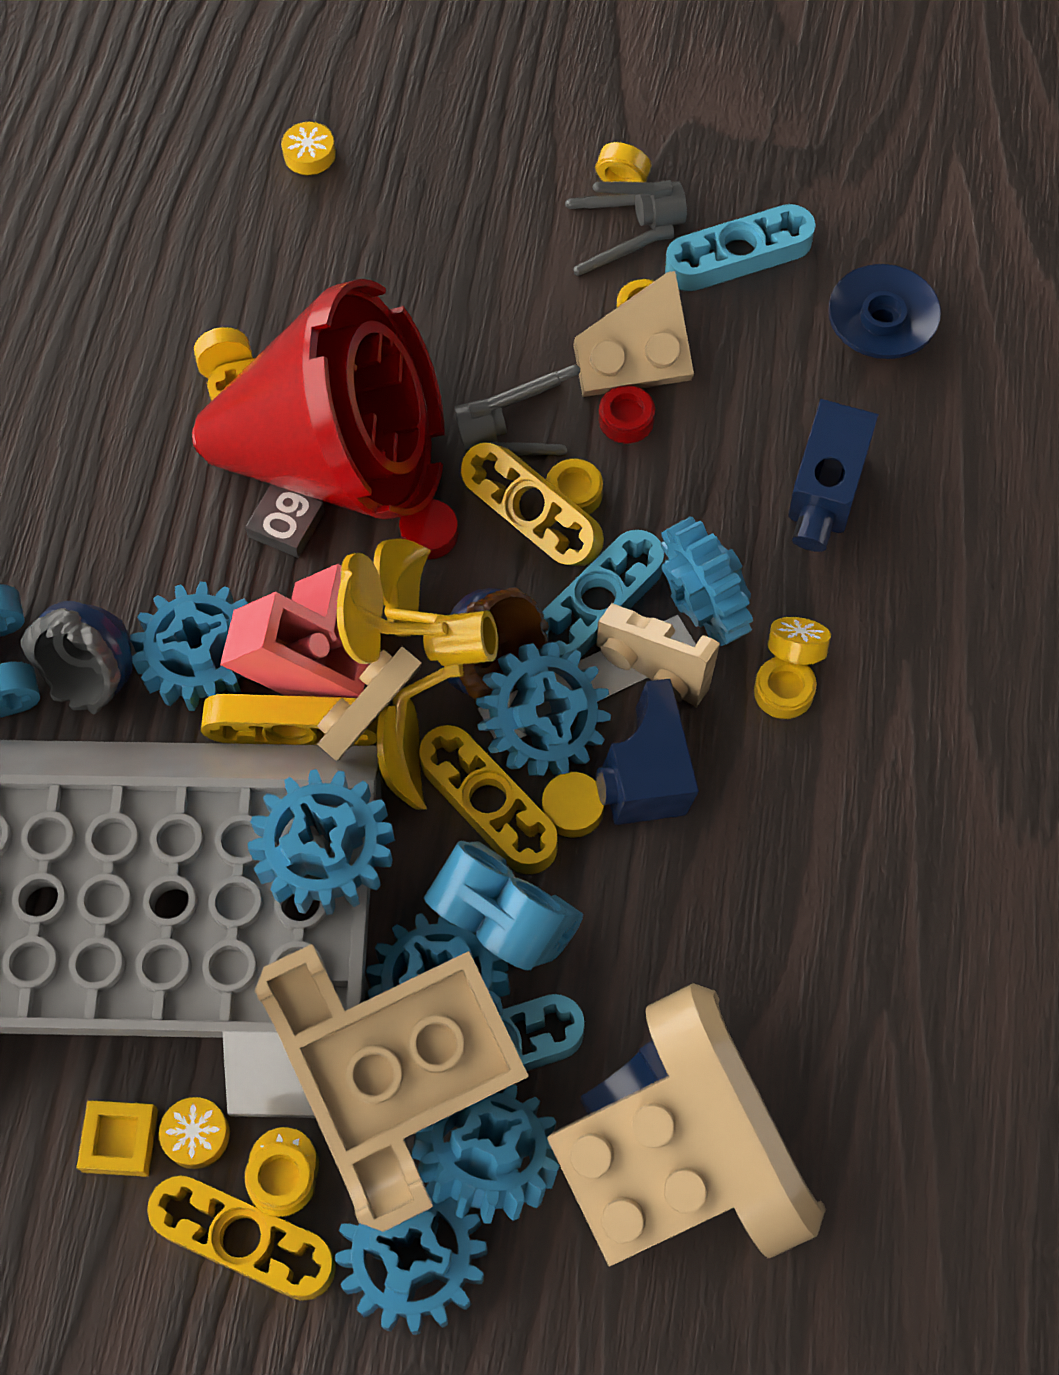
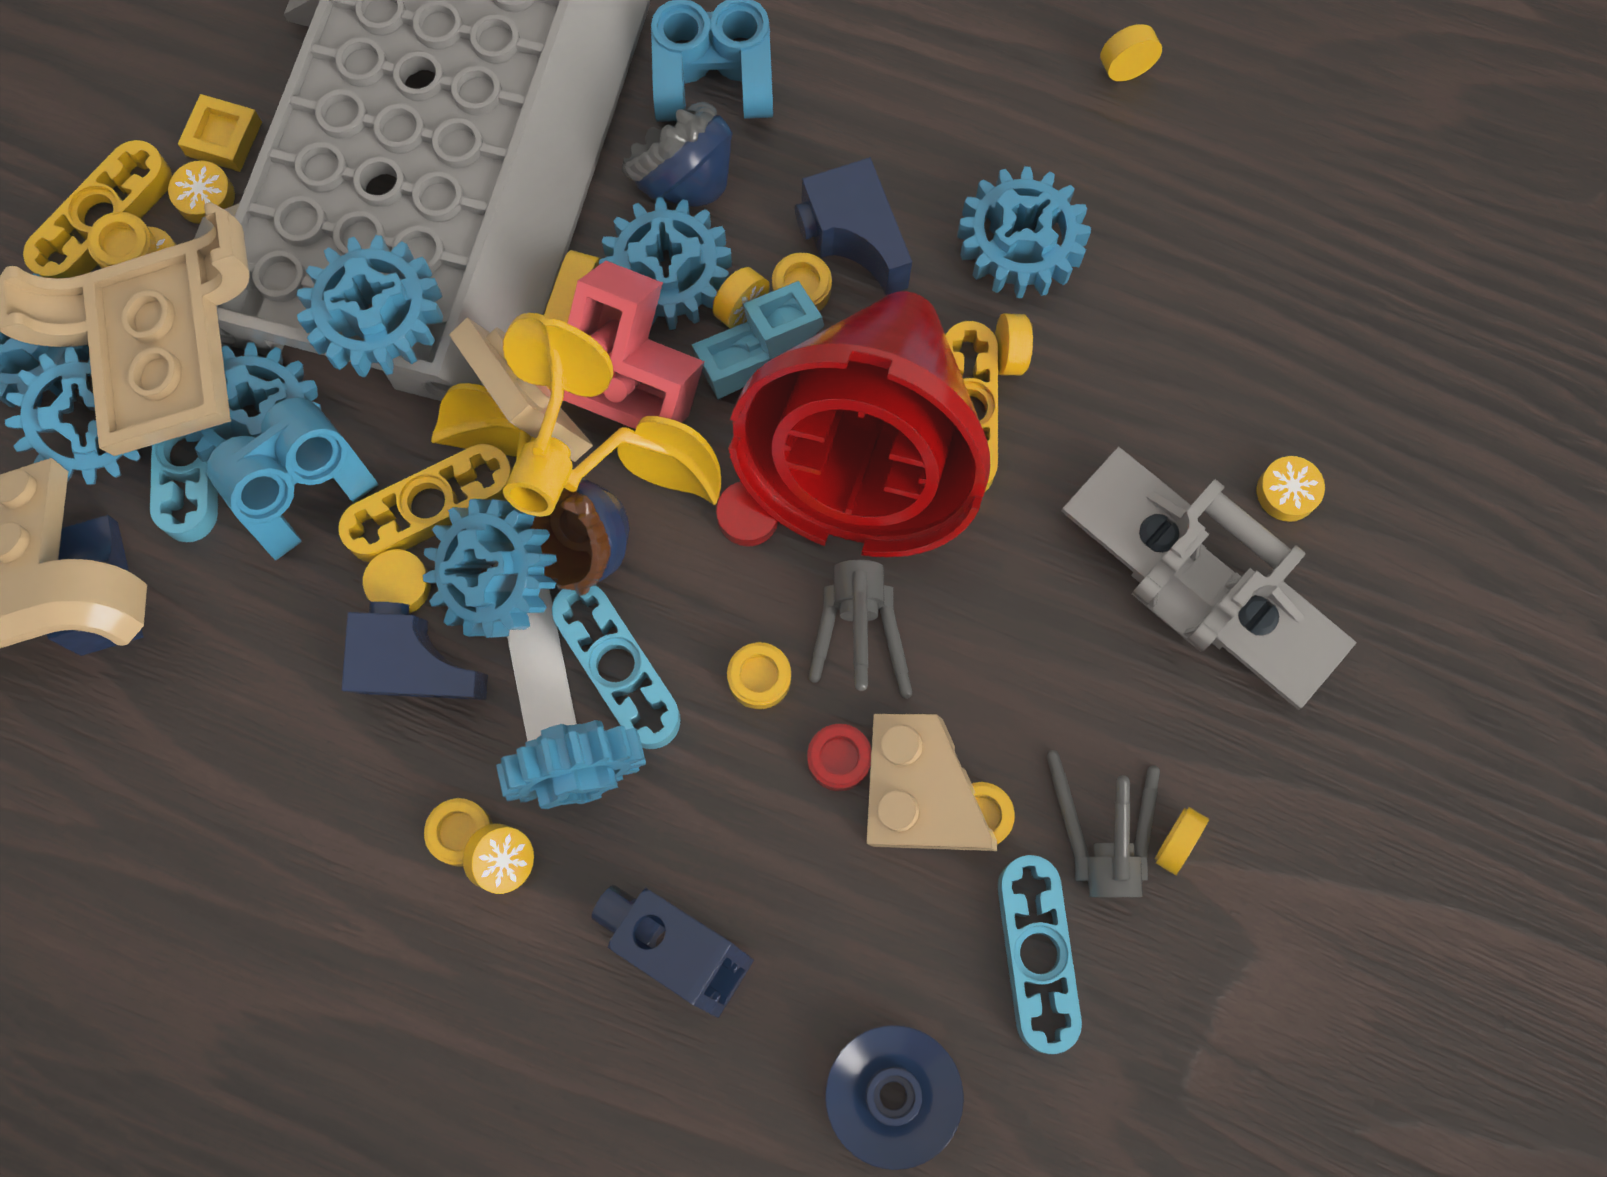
camera: 100 degrees right, 10 degrees up
(110, 365) = (1024, 255): none -> dark azure gear
(123, 492) = (853, 220): none -> dark blue arch
(192, 538) = (811, 274): none -> yellow tile
(220, 572) = (738, 289): none -> yellow tile
(258, 542) = (772, 327): none -> medium azure slope
(409, 200) = (1195, 592): none -> light grey piece
(572, 516) = (710, 656): yellow beam -> none
(646, 646) = (513, 698): tan wing -> none

